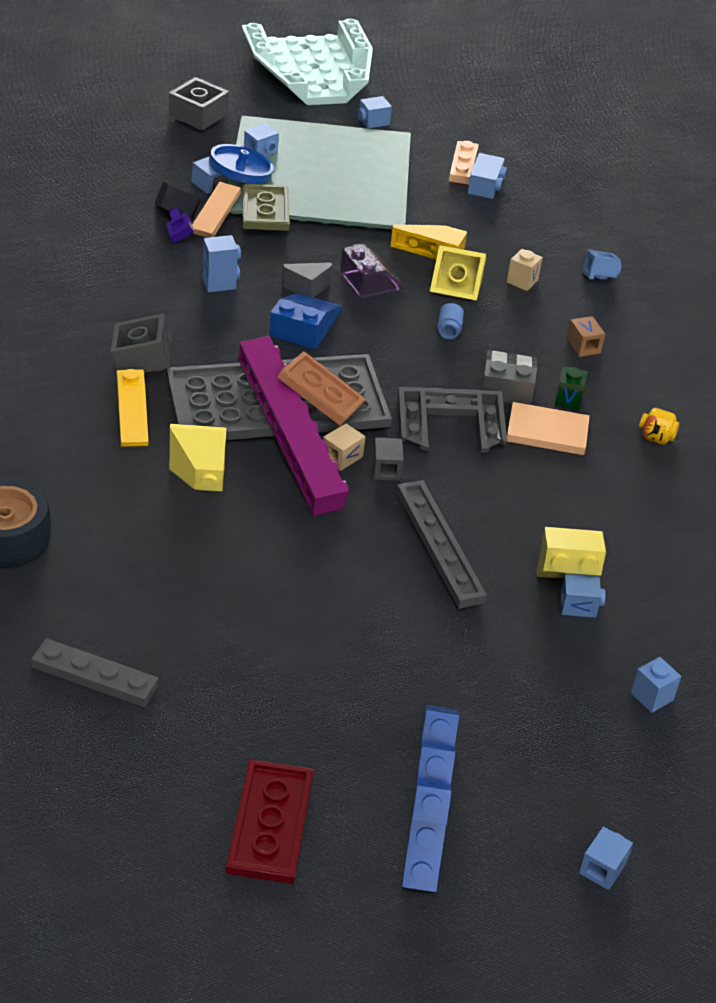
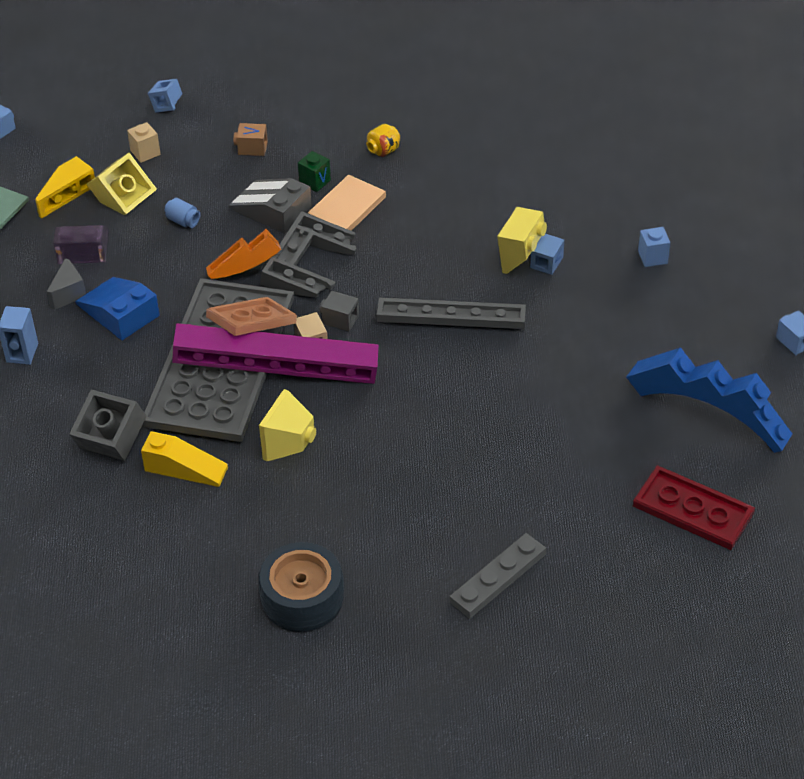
camera: 60 degrees left, 5 degrees up
(416, 372) = (244, 256): none -> orange slope

